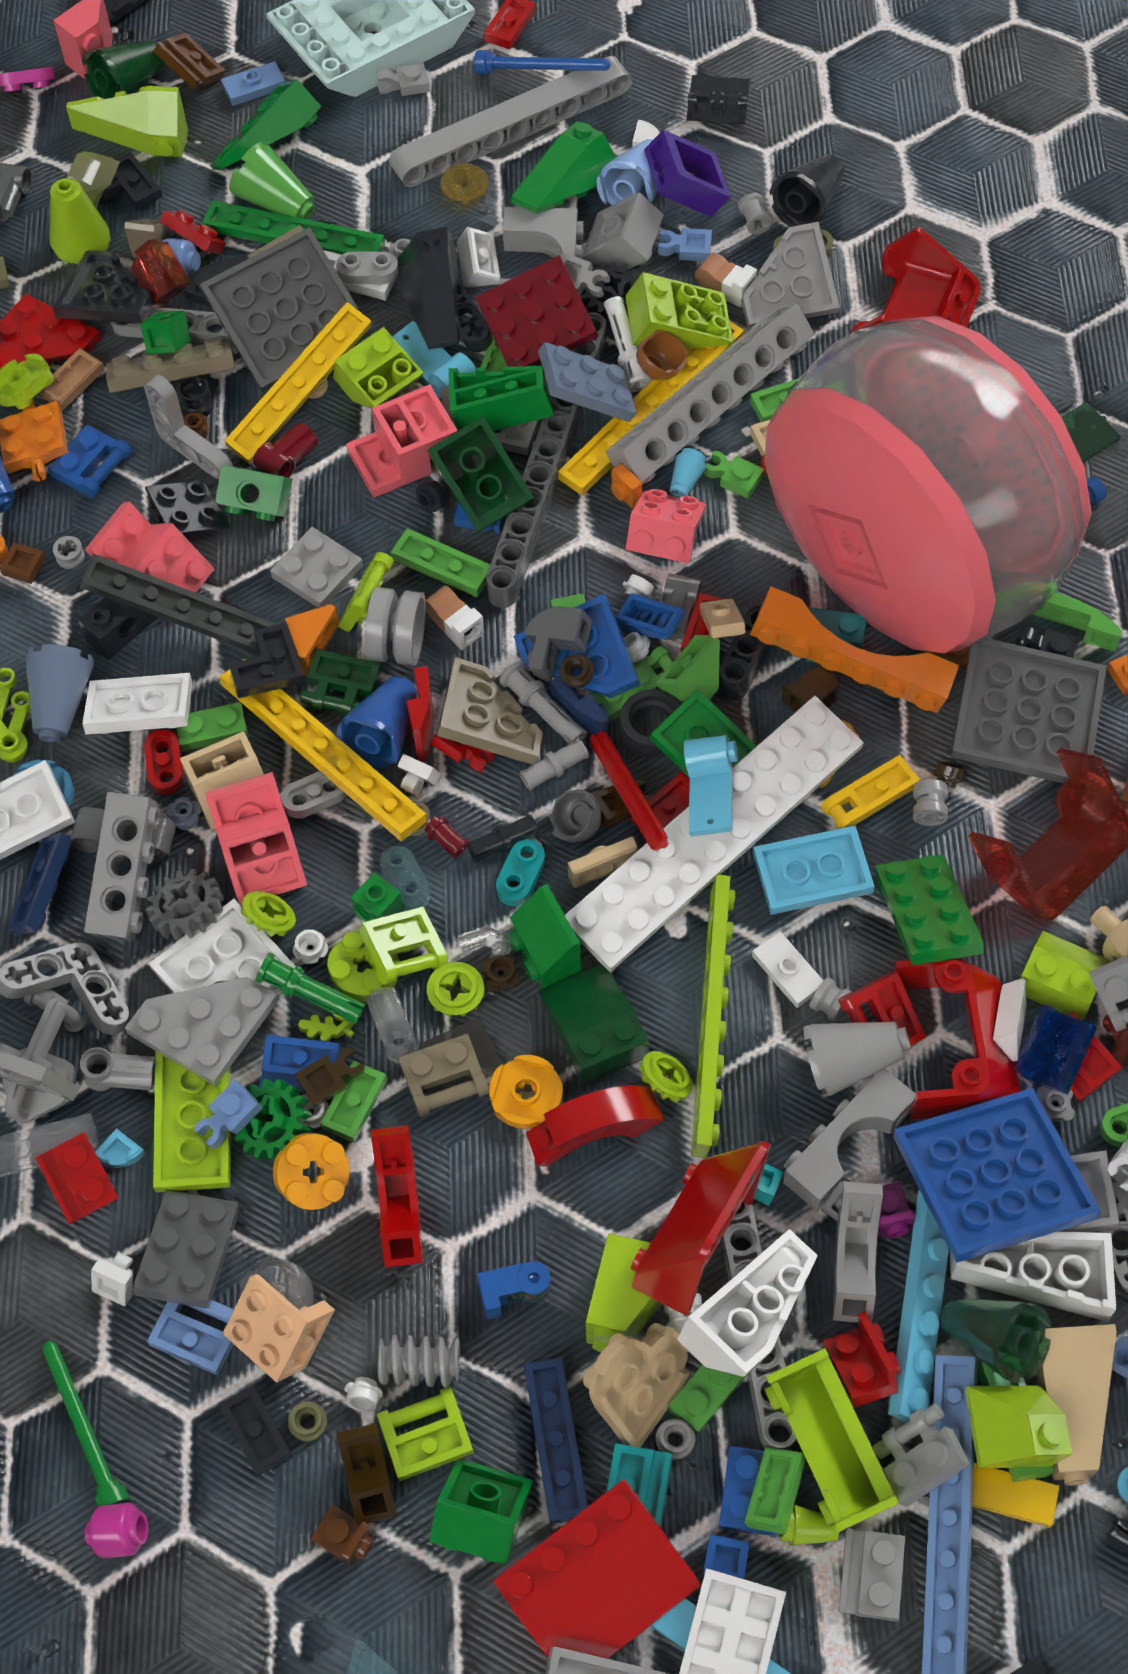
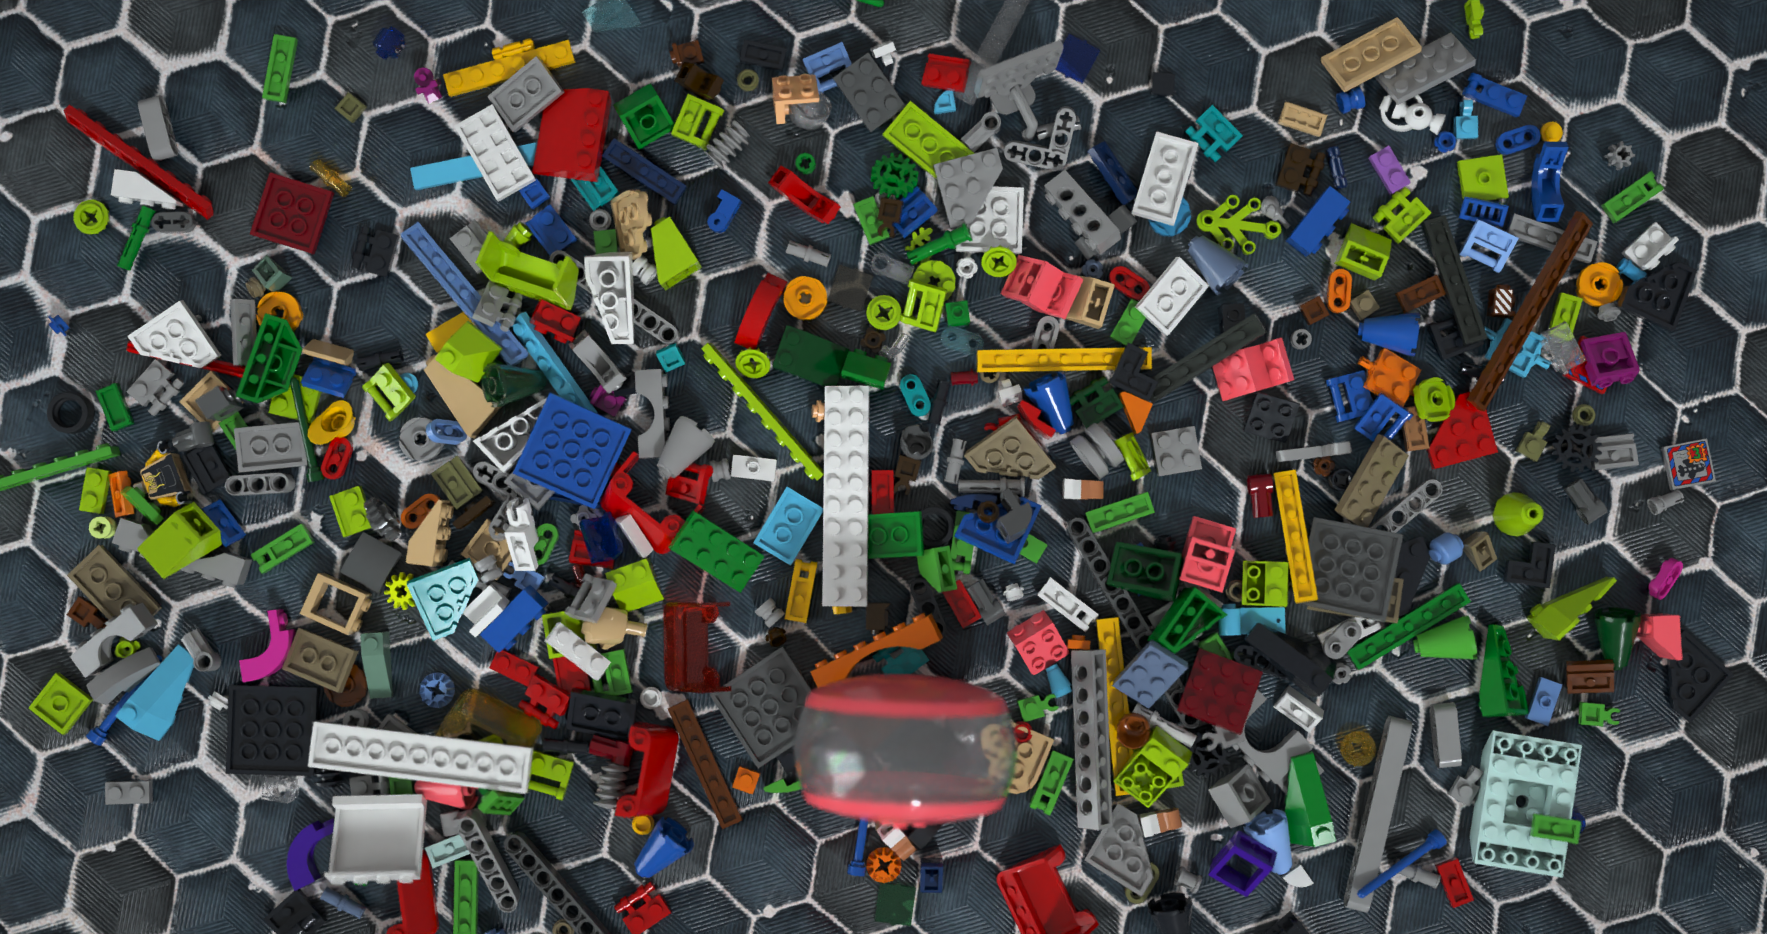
camera: 135 degrees right, 25 degrees up
(89, 408) = (1379, 414): none -> blue plate
(93, 173) = (1545, 548): olive slope -> none
(103, 291) = (1456, 490): black plate -> none
(159, 271) = (1439, 527): clear red piece -> none
(165, 332) = (1393, 495): green brick -> none
(184, 904) = (1041, 237): dark grey gear -> none
(201, 236) = (1457, 572): red plate -> none
(223, 37) = (1594, 714): none -> bright green plate
(232, 1111) = (911, 158): medium blue plate -> none
(234, 489) = (1244, 466): green brick -> none
(296, 1156) = (842, 172): light orange plate -> none
(349, 1237) = (811, 165): none -> green bush
(363, 1394) = (737, 111): white plate -> none
(372, 126) = (1445, 735): none -> light grey beam
(441, 1065) = (853, 271): dark tan plate -> none
(466, 1138) = (808, 253): none -> light grey pin
(533, 48) = (1416, 874): none -> light grey pin
(595, 532) = (1066, 604): none -> white plate
(600, 862) = (883, 435): tan plate -> none
(629, 791) = (903, 477): red axle -> none
(636, 605) = (1001, 571): blue slope -> none
(637, 646) = (981, 558): white plate -> none
(647, 954) = (818, 411): none -> light nougat plate
(691, 244) = (1199, 827): medium blue plate -> none
(696, 1224) = (661, 298): red windscreen -> none
(711, 784) = (869, 515): medium azure door -> none
(722, 618) = (950, 607): tan plate -> none
(775, 1490) = (538, 235): bright green plate -> none

